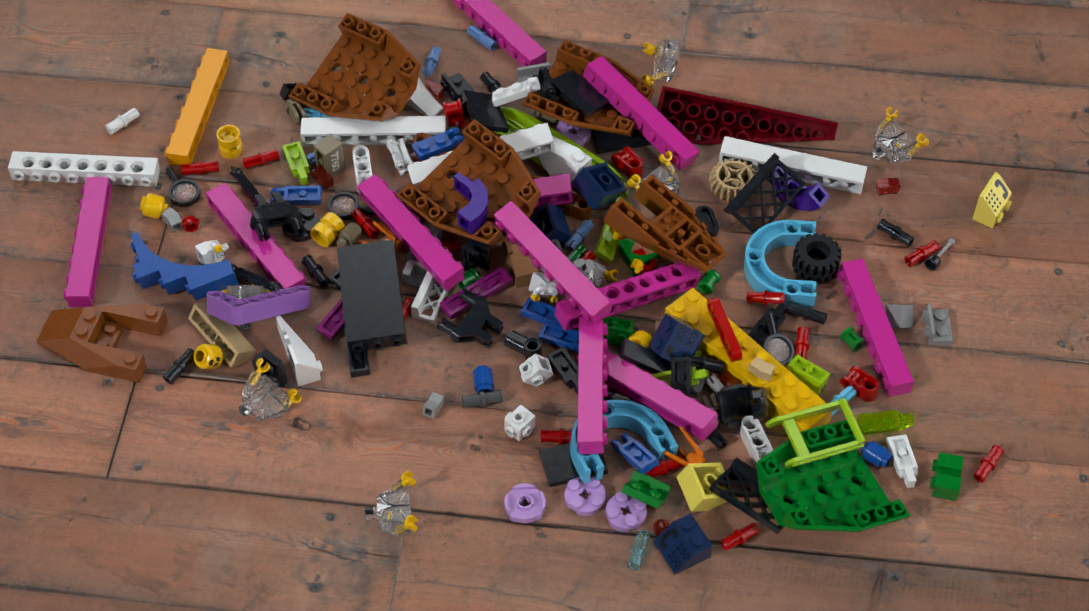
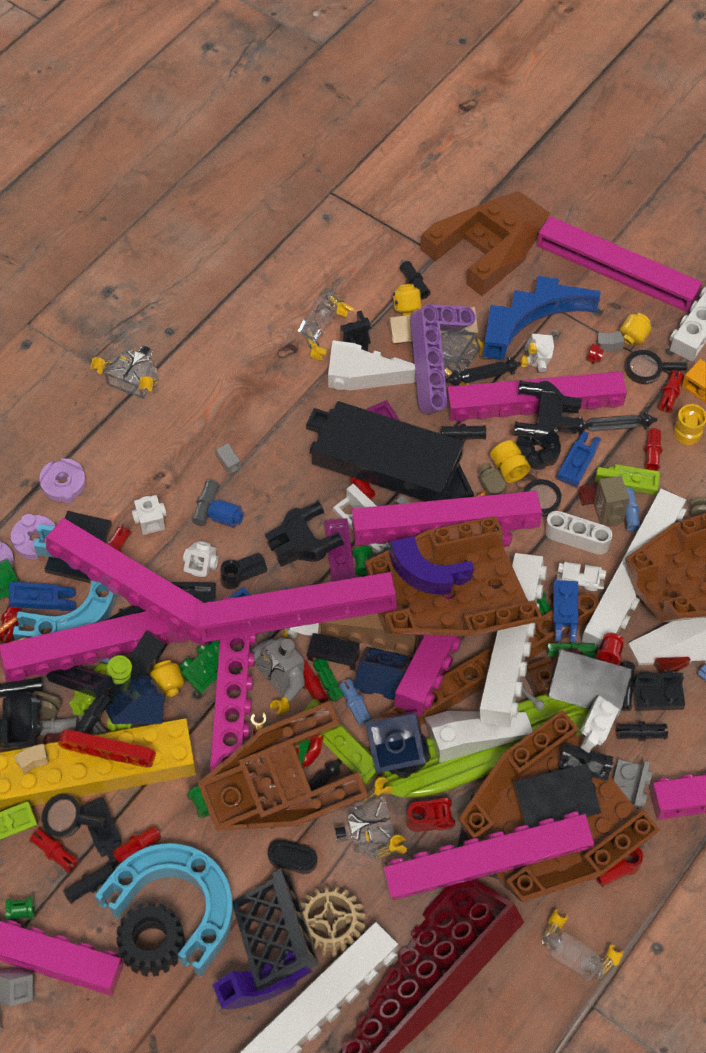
camera: 120 degrees right, 5 degrees up
(661, 359) = (119, 669): none -> lime wheel

